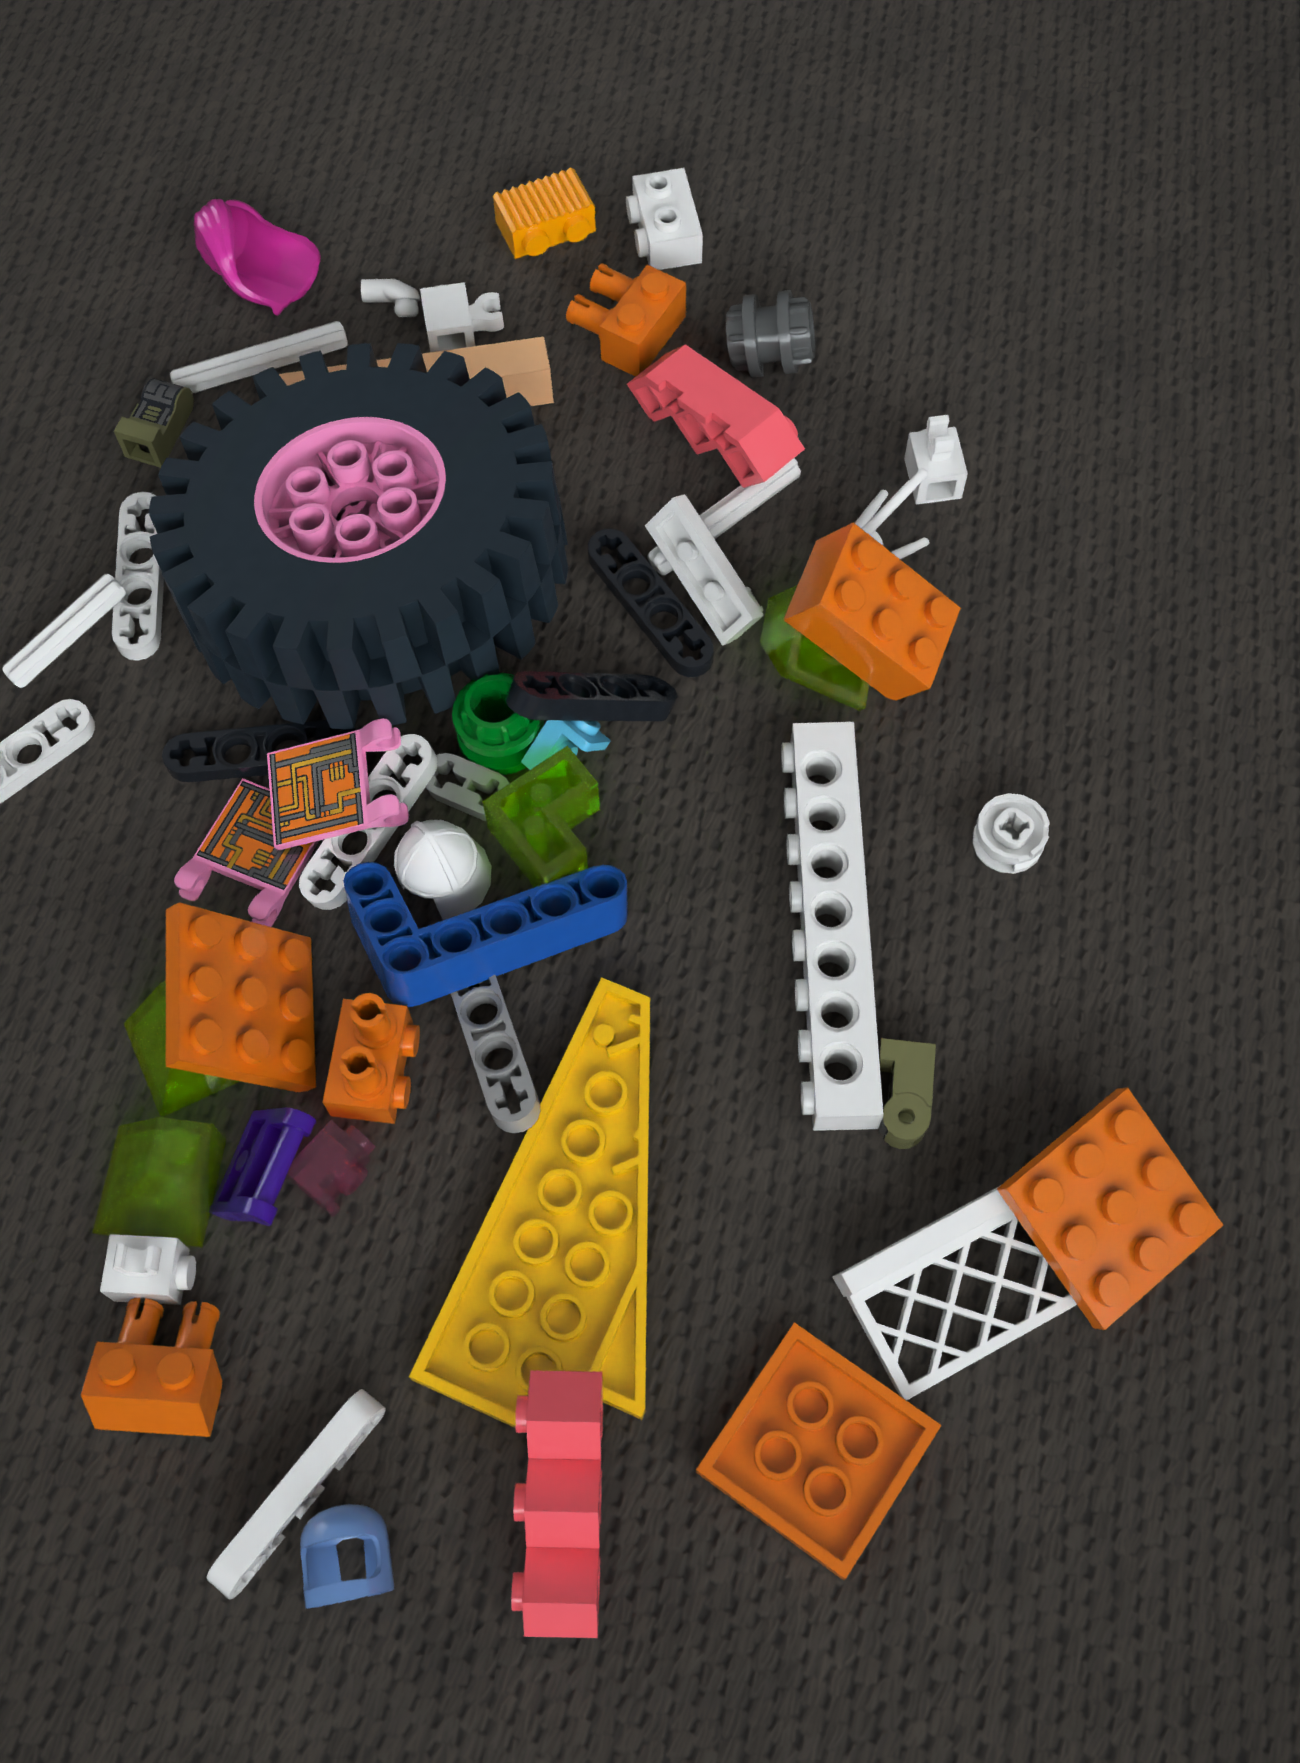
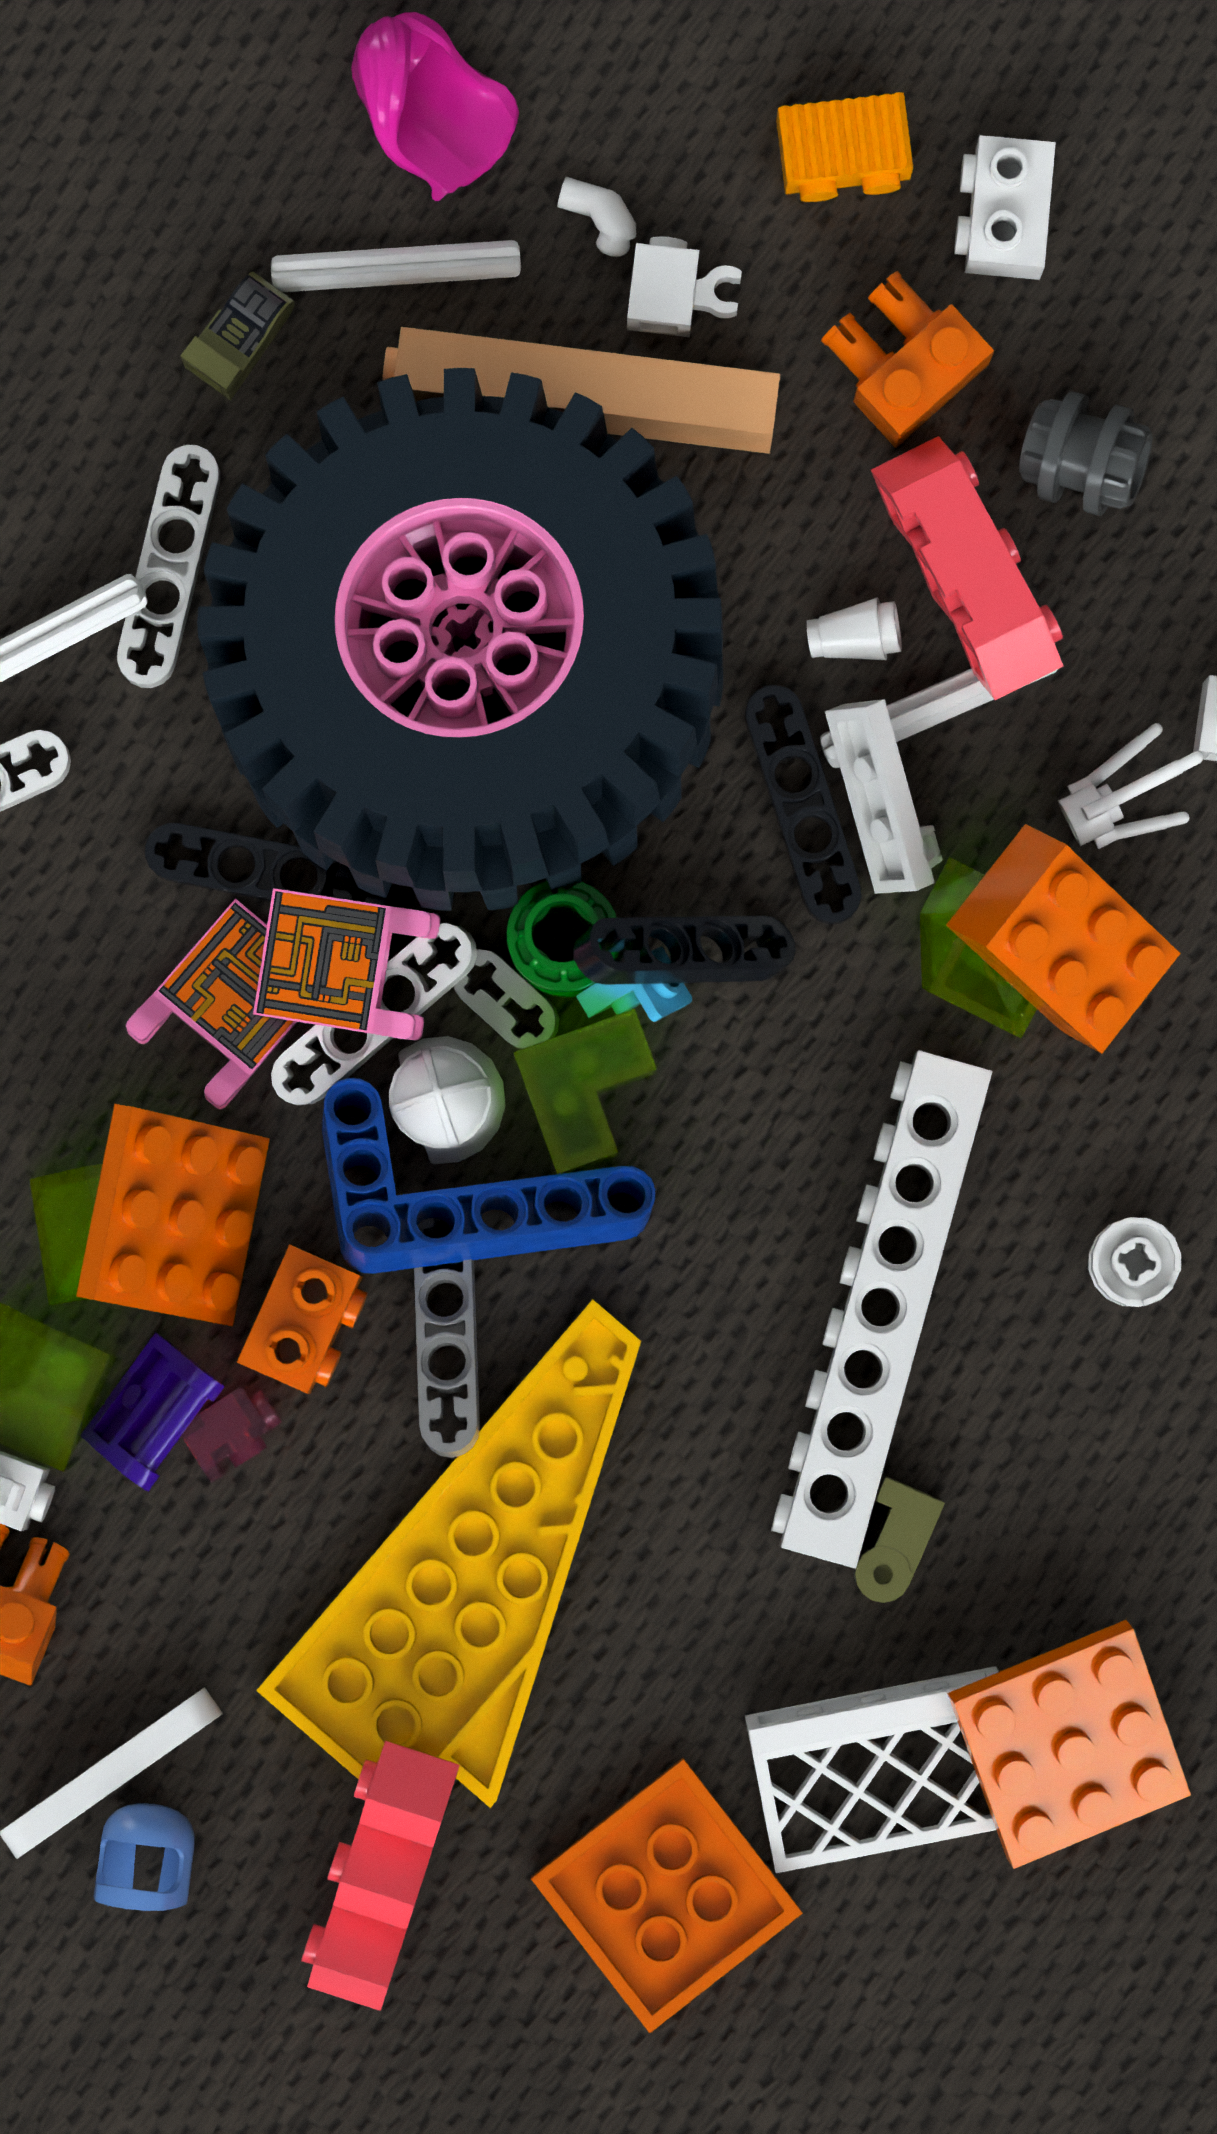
camera: 15 degrees right, 20 degrees up
(651, 484) = (856, 632): none -> white cone

